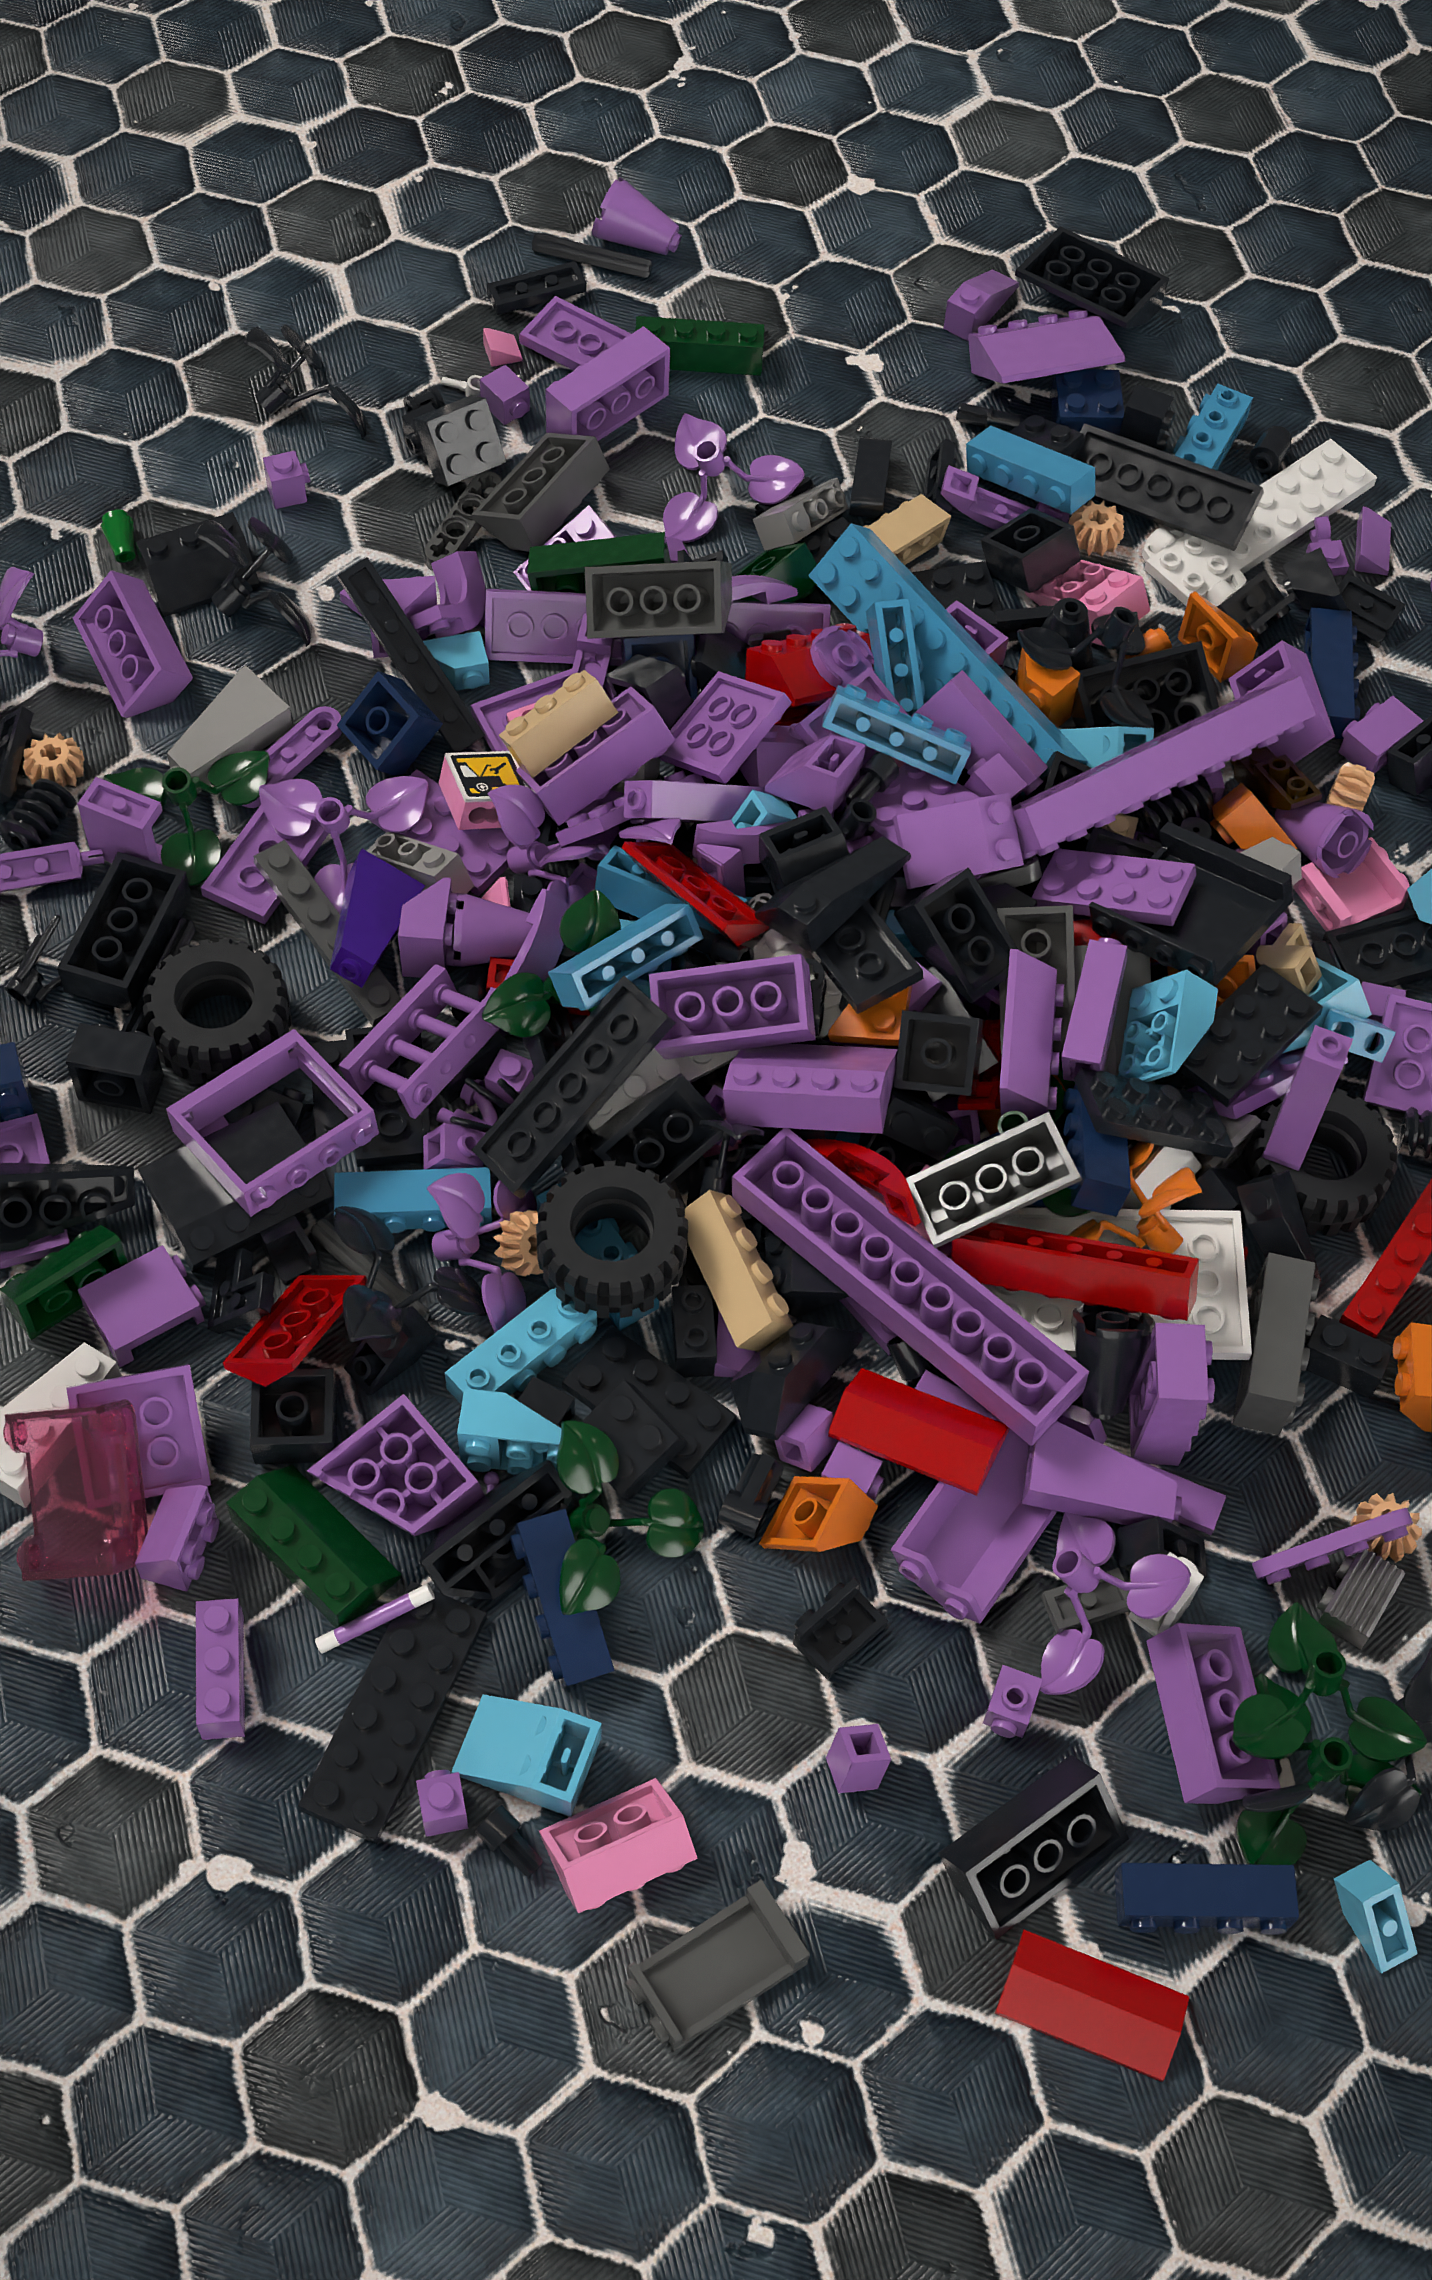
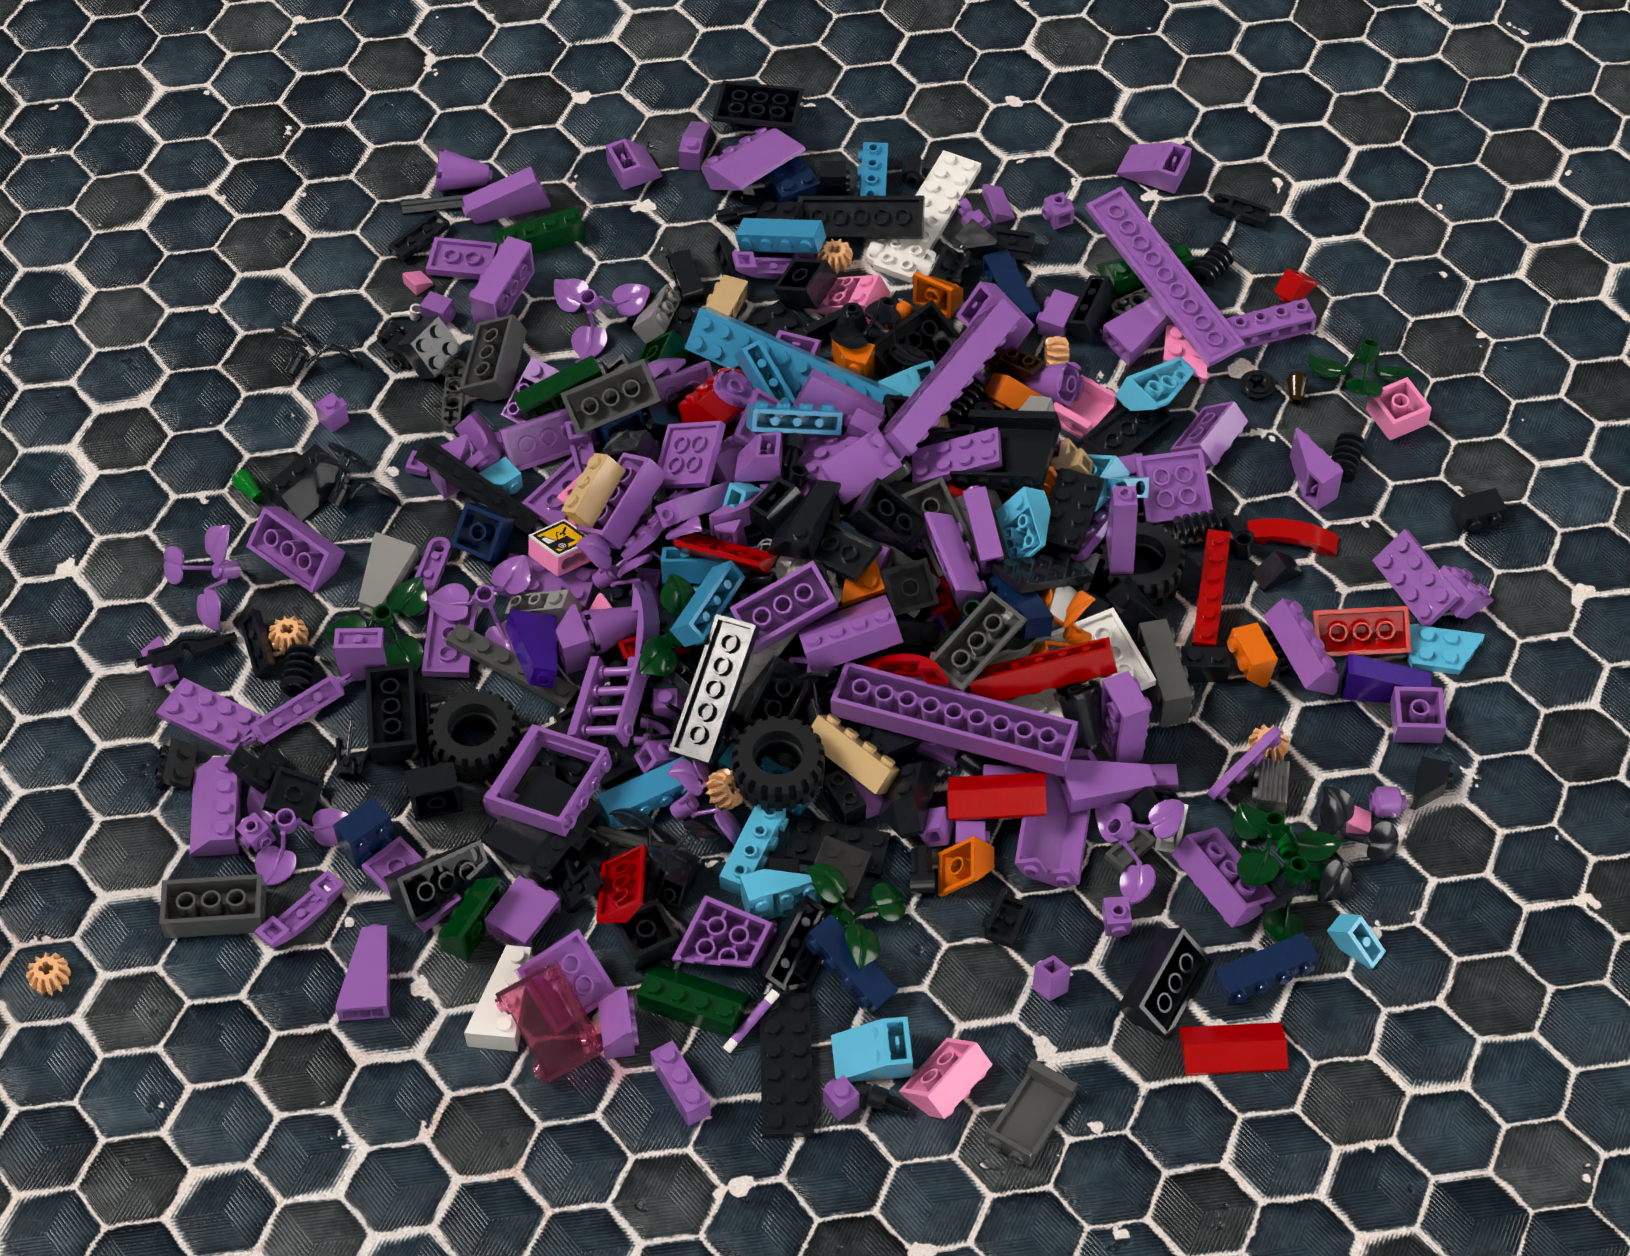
camera: 20 degrees left, 5 degrees down
(681, 279) = (506, 198): none -> medium lavender slope
(877, 295) = (631, 163): none -> medium lavender slope
(1332, 1709) = (1286, 849): none -> green cone

